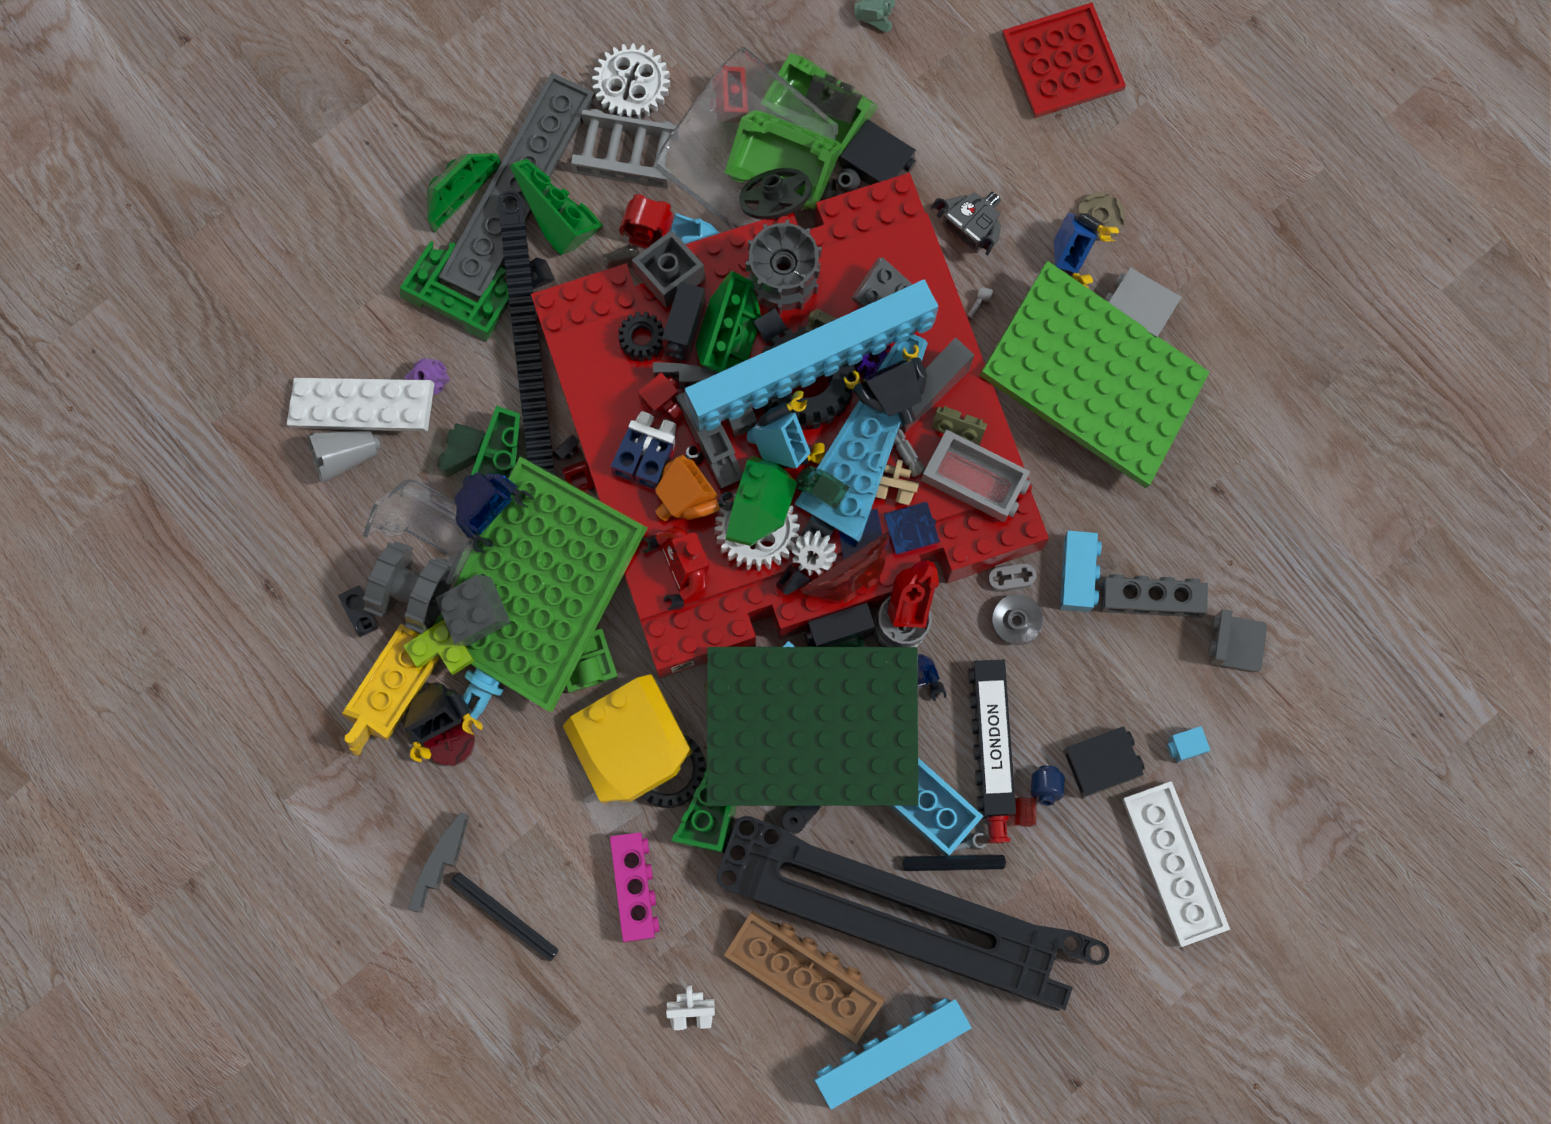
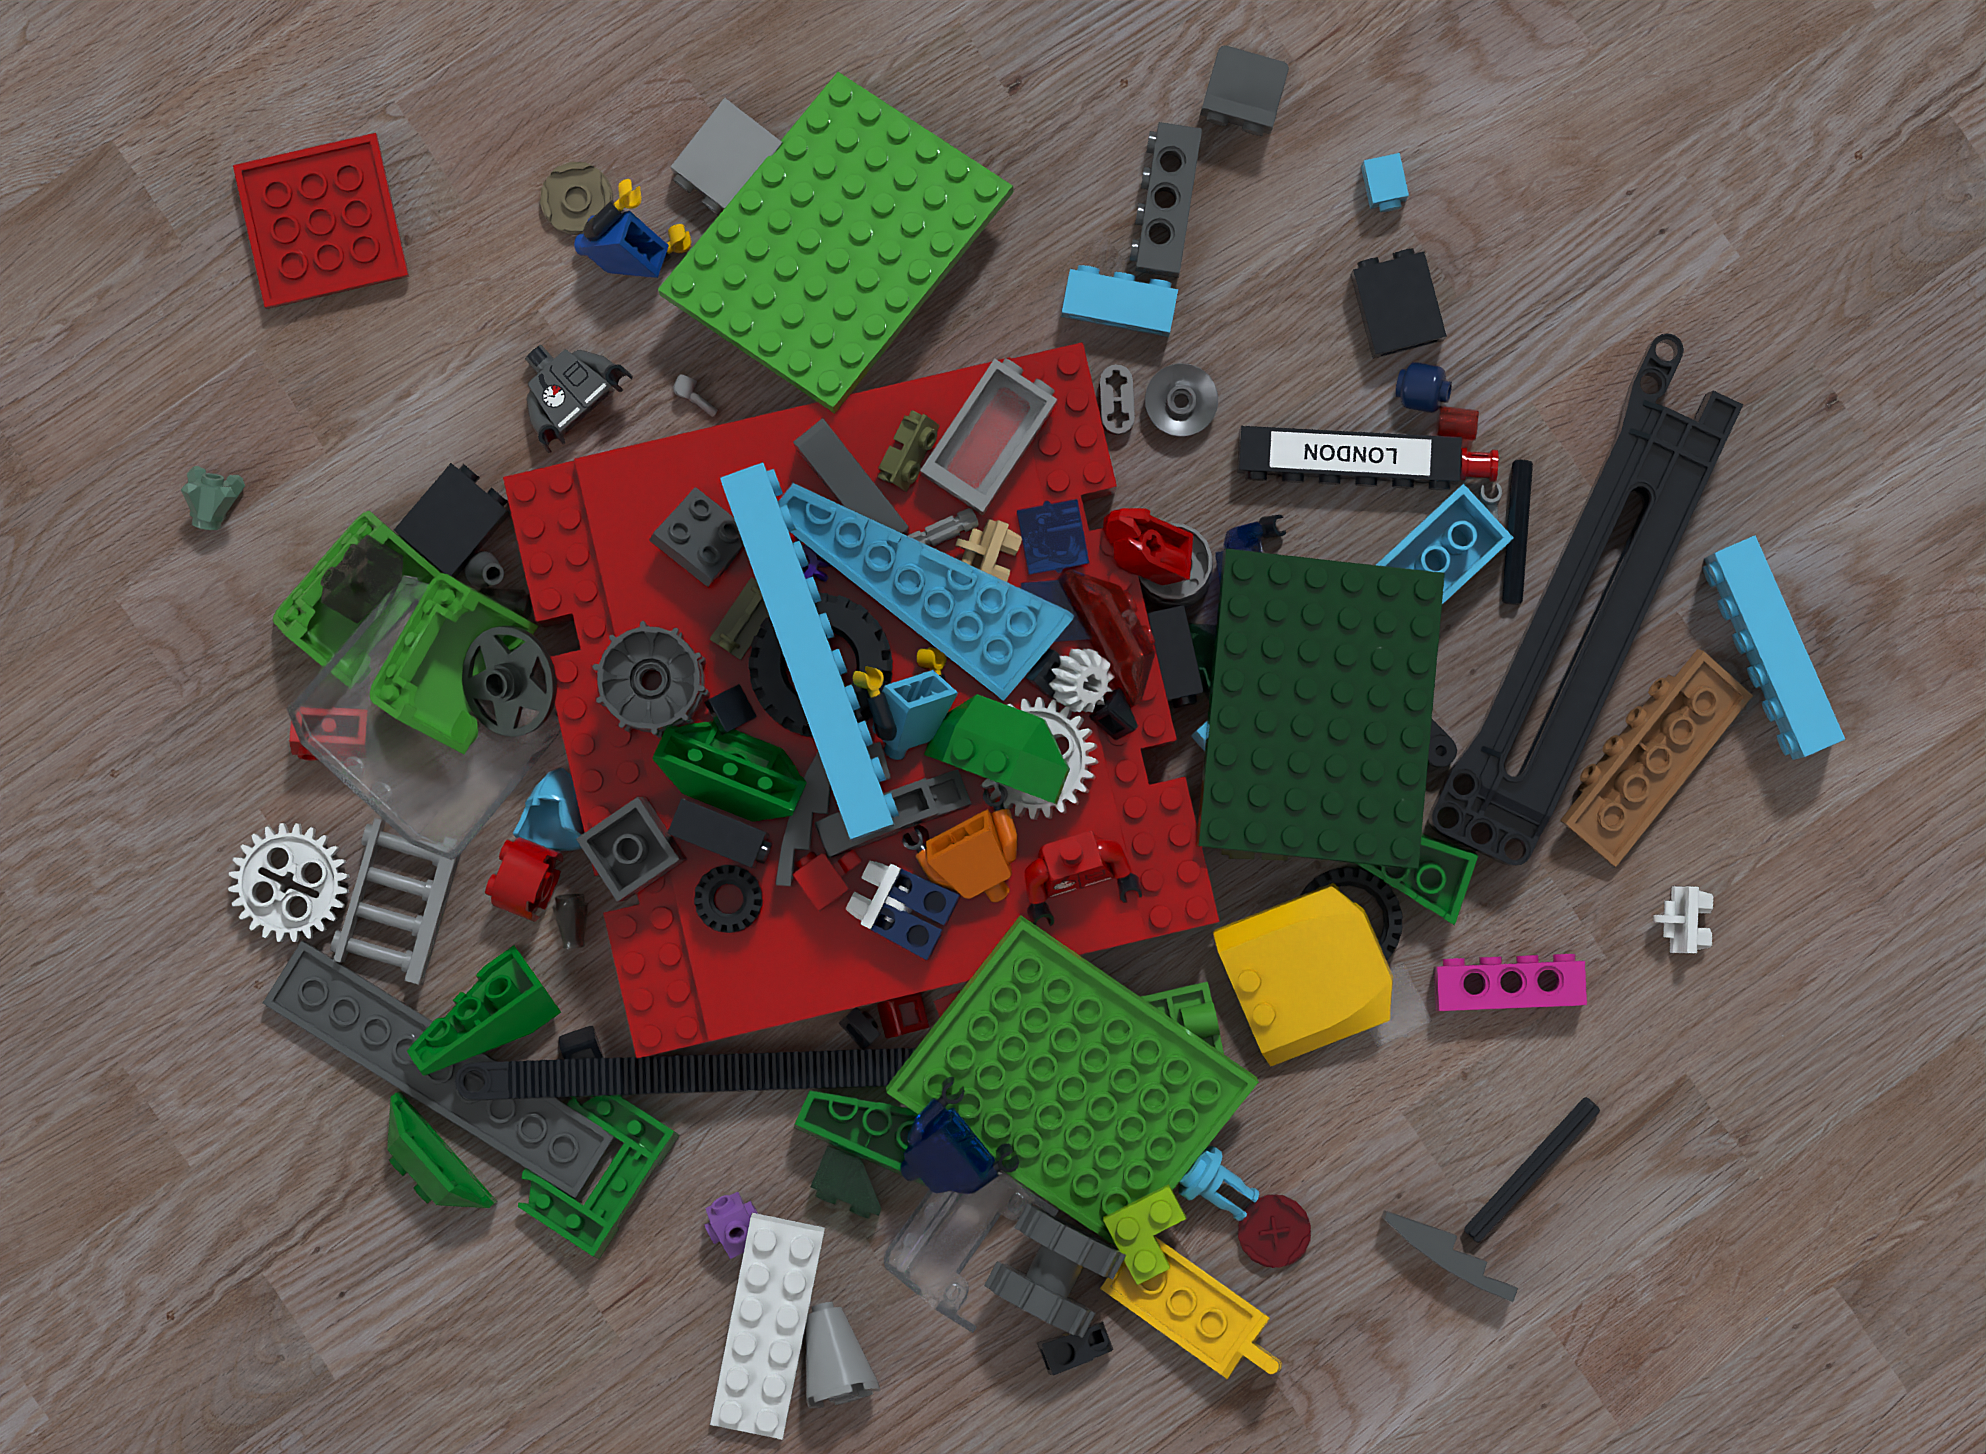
camera: 85 degrees left, 10 degrees up
(433, 714) = (1241, 1246): black torso -> none
(472, 610) = (1102, 1179): dark grey brick -> none
(821, 486) = (991, 659): clear green slope -> none
(894, 387) = (864, 539): black torso -> none
(1175, 864) = (1549, 223): white plate -> none

